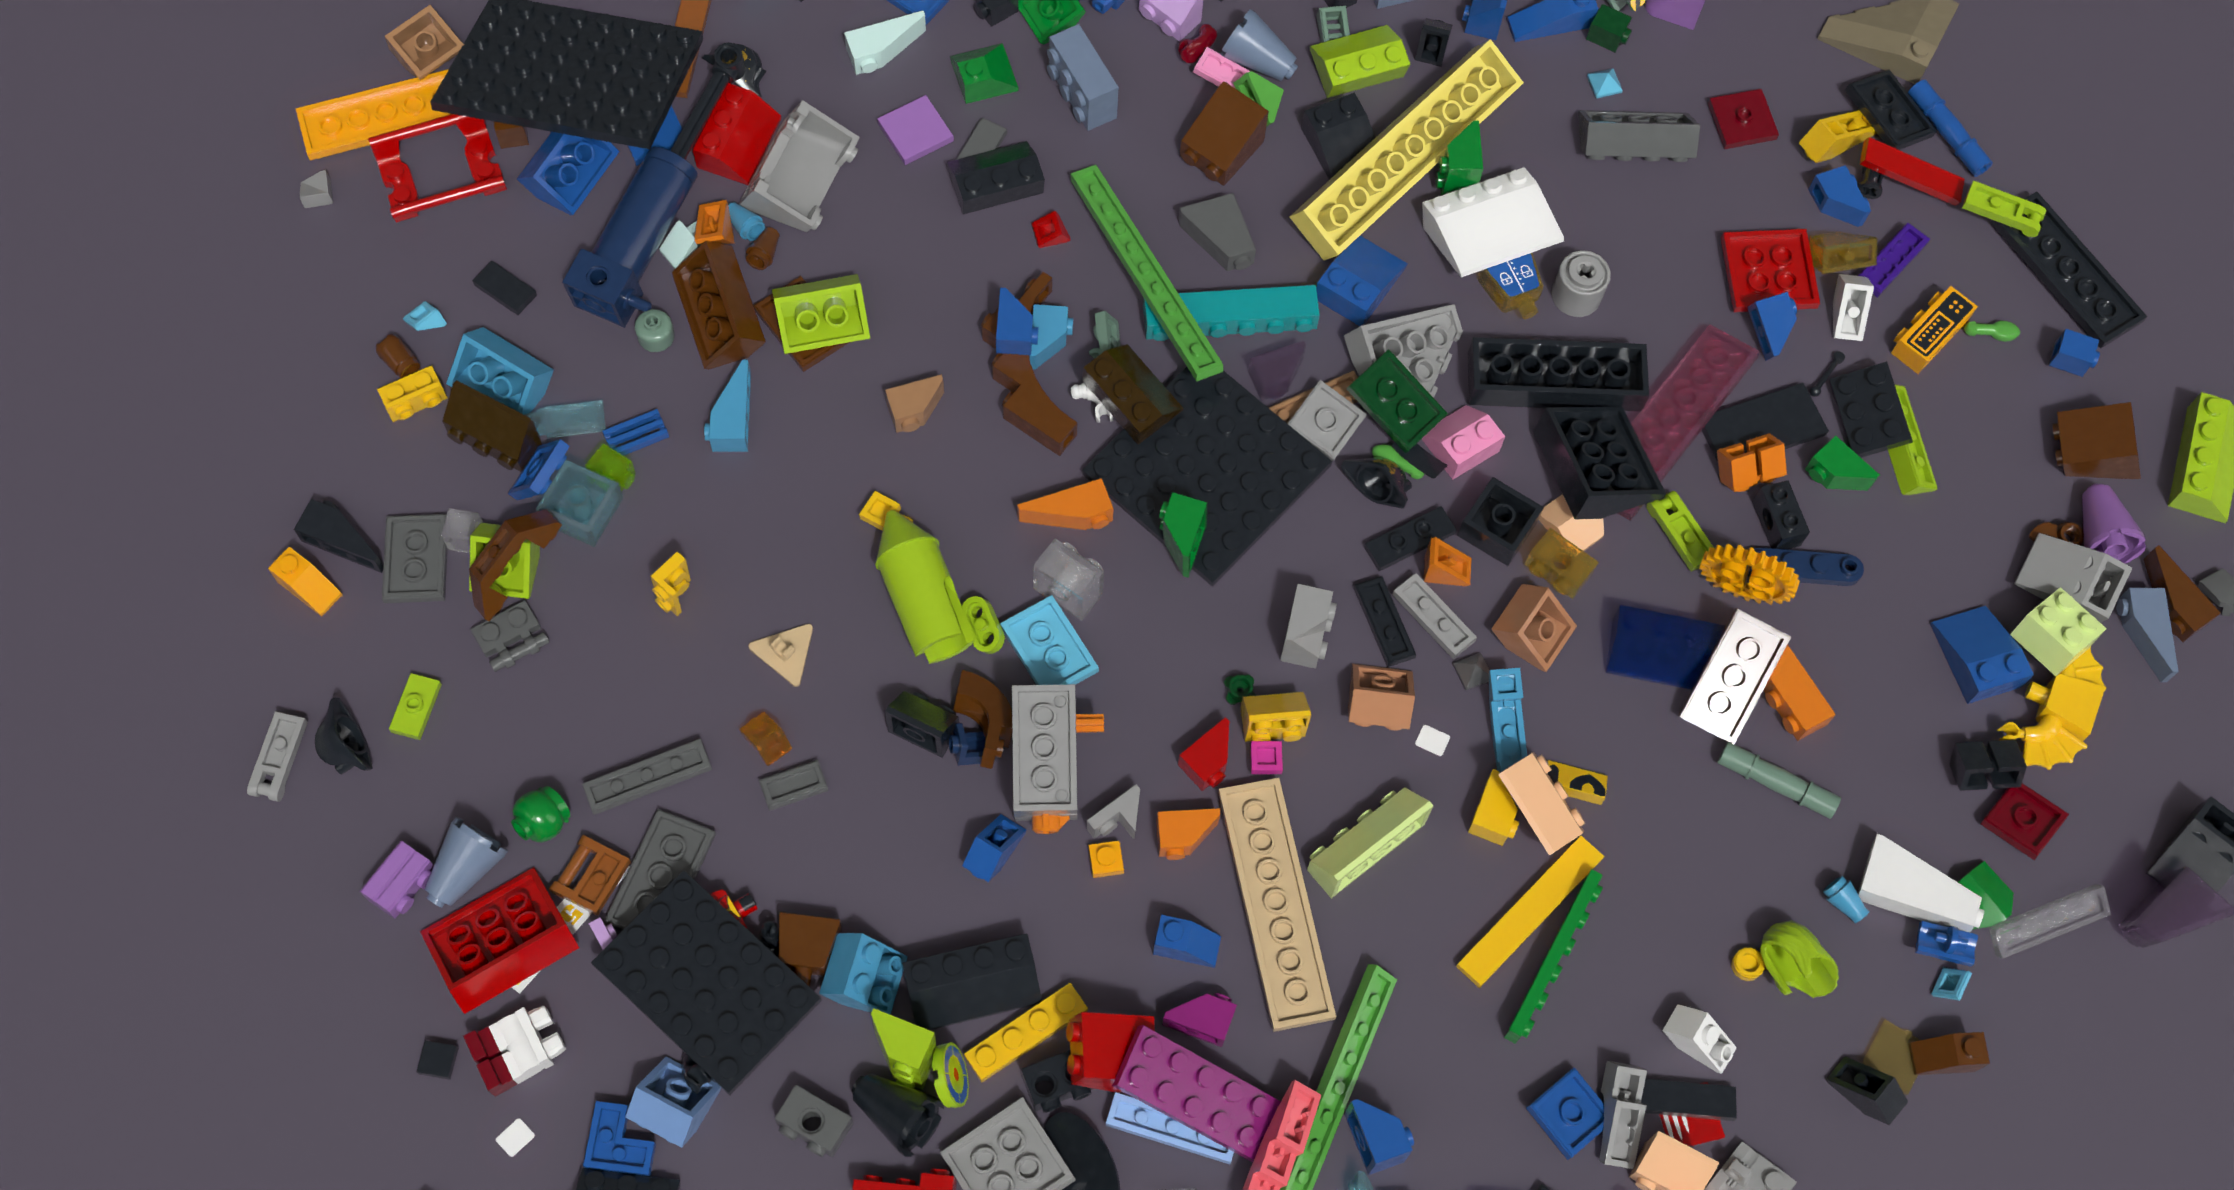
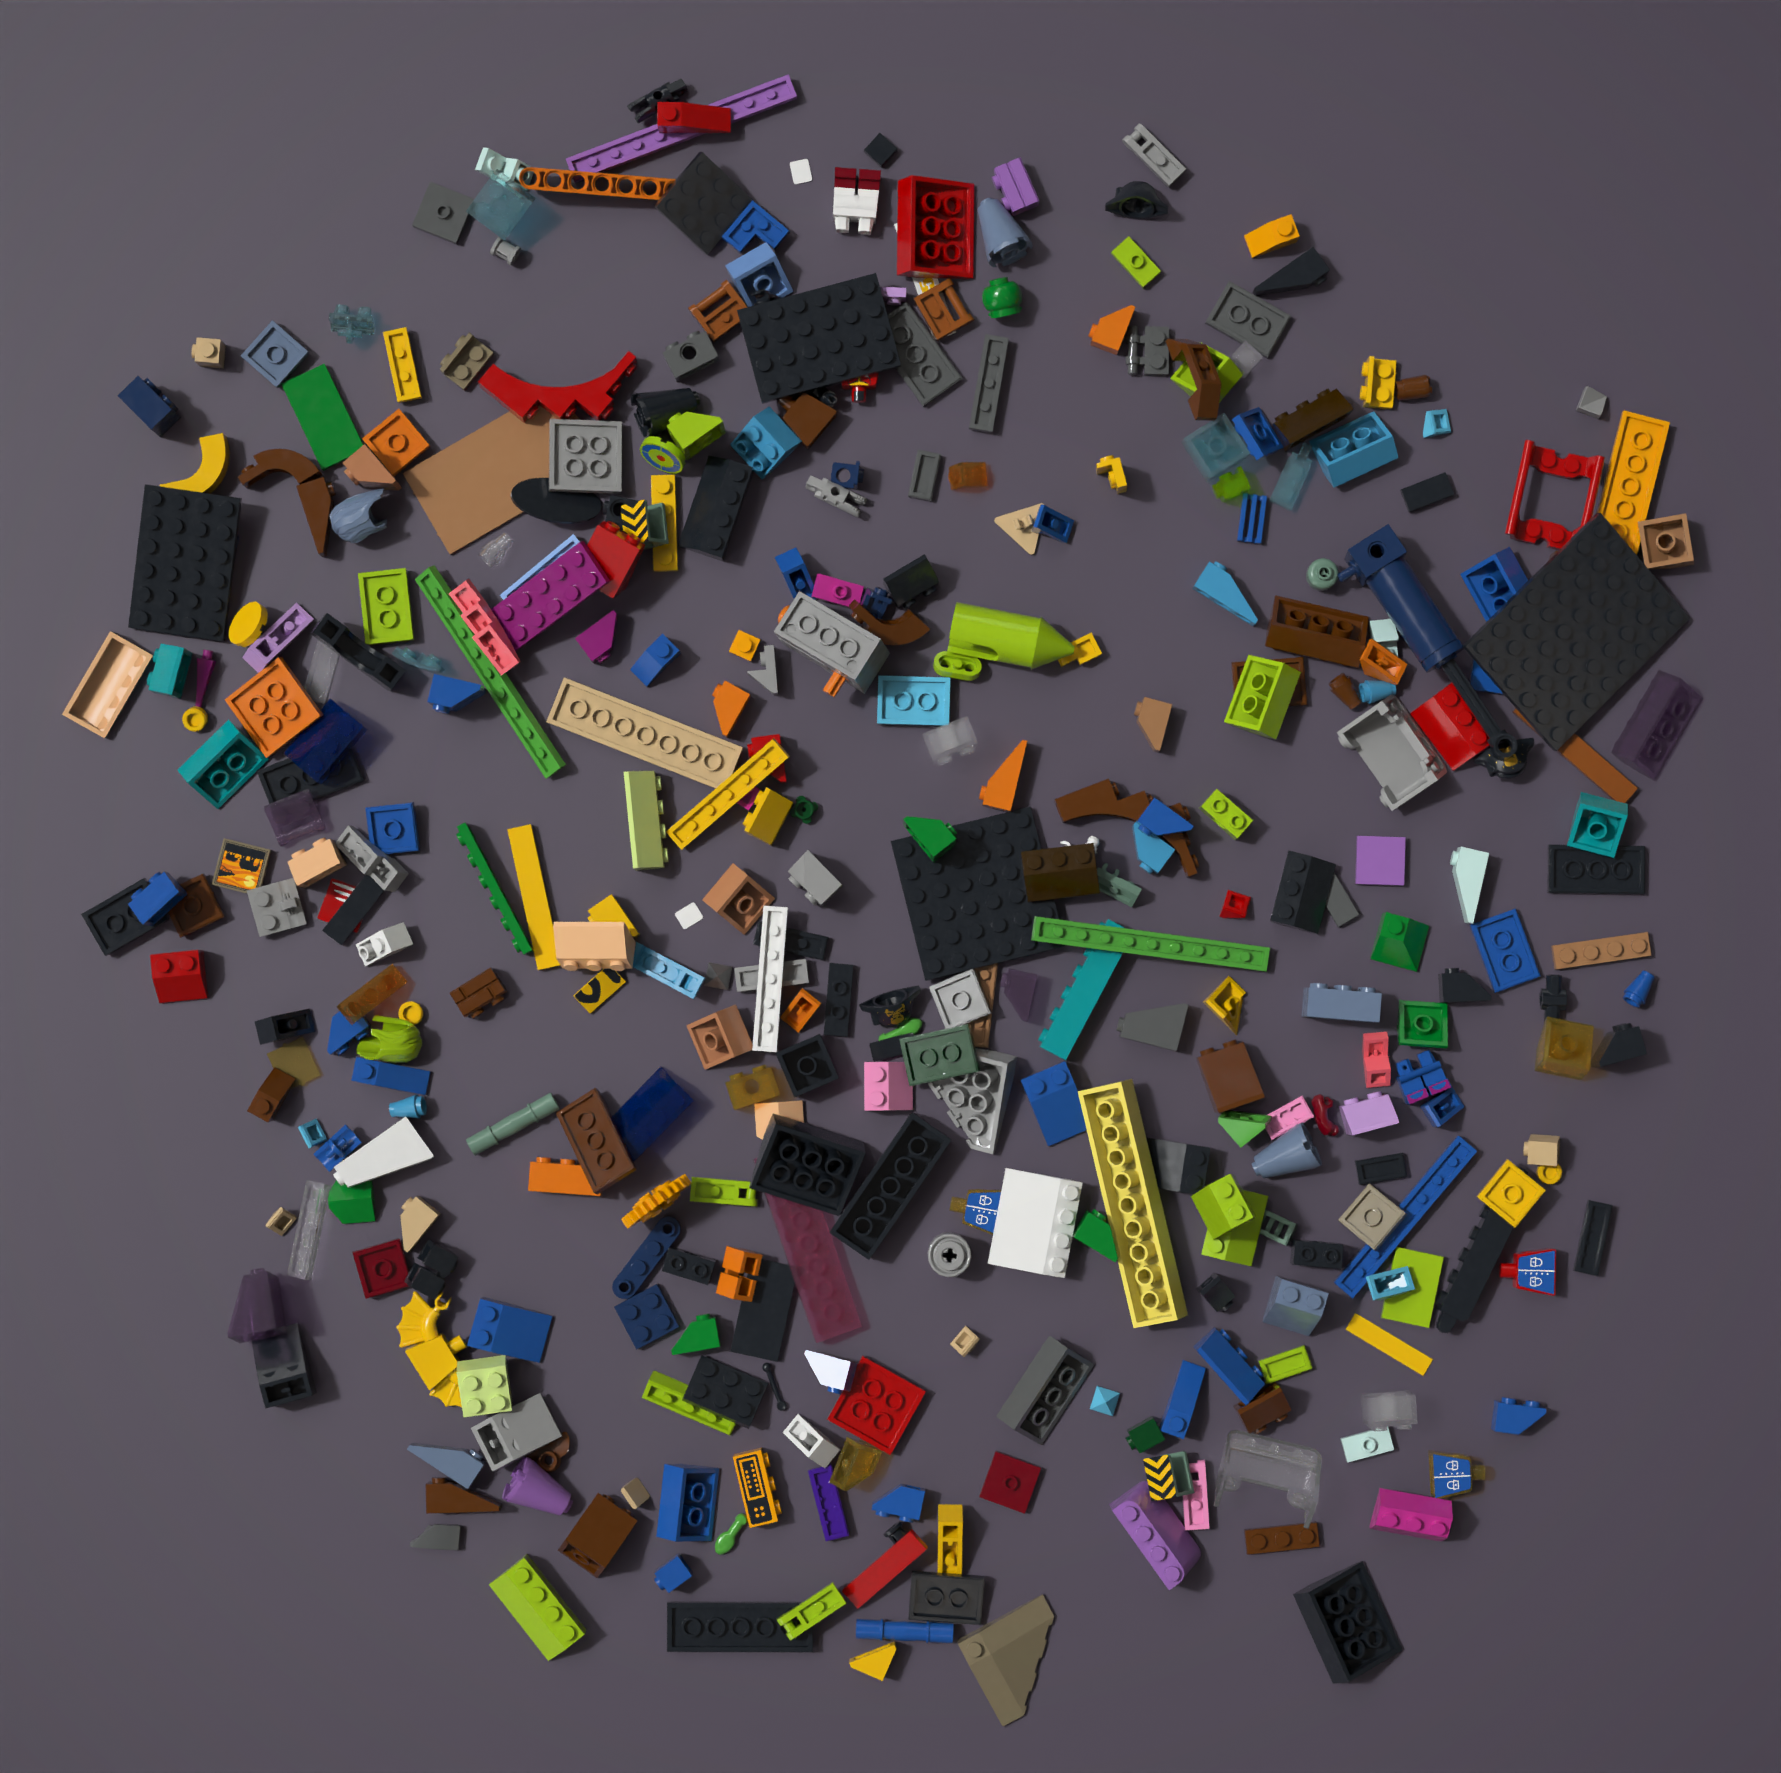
camera: 125 degrees right, 20 degrees up
(508, 682) = (1111, 330): none -> orange slope
(742, 1112) = (724, 317): none -> dark orange plate
(766, 621) = (1052, 524): none -> blue slope
(841, 853) = (856, 474): none -> dark blue bracket
(878, 876) = (825, 488): none -> light grey hinge
(964, 283) = (1225, 814): none -> lime brick
(982, 795) = (836, 590): none -> dark pink plate
(1042, 1043) = (646, 522): none -> piece
(1114, 30) = (1376, 1059): none -> coral slope
(1150, 188) = (1227, 1003): none -> yellow slope
(1280, 768) = (727, 793): none -> yellow plate
(1355, 52) = (1223, 1206): none -> lime slope
(1441, 608) = (770, 978): none -> white plate
(1649, 227) = (965, 1341): none -> tan slope
(1675, 901) = (478, 993): none -> reddish brown brick
(1765, 1010) = (372, 994): none -> clear orange plate
(1816, 1020) = (343, 1033): none -> blue slope
(1833, 936) = (390, 1075): none -> blue slope
(1858, 530) = (646, 1316): none -> dark blue plate
(1949, 812) = (416, 1221): none -> tan slope
(1998, 135) = (874, 1662): none -> yellow slope
(2000, 382) = (687, 1502): none -> blue slope
(2031, 436) = (635, 1493): none -> tan slope
(2064, 959) = (281, 1221): none -> tan slope

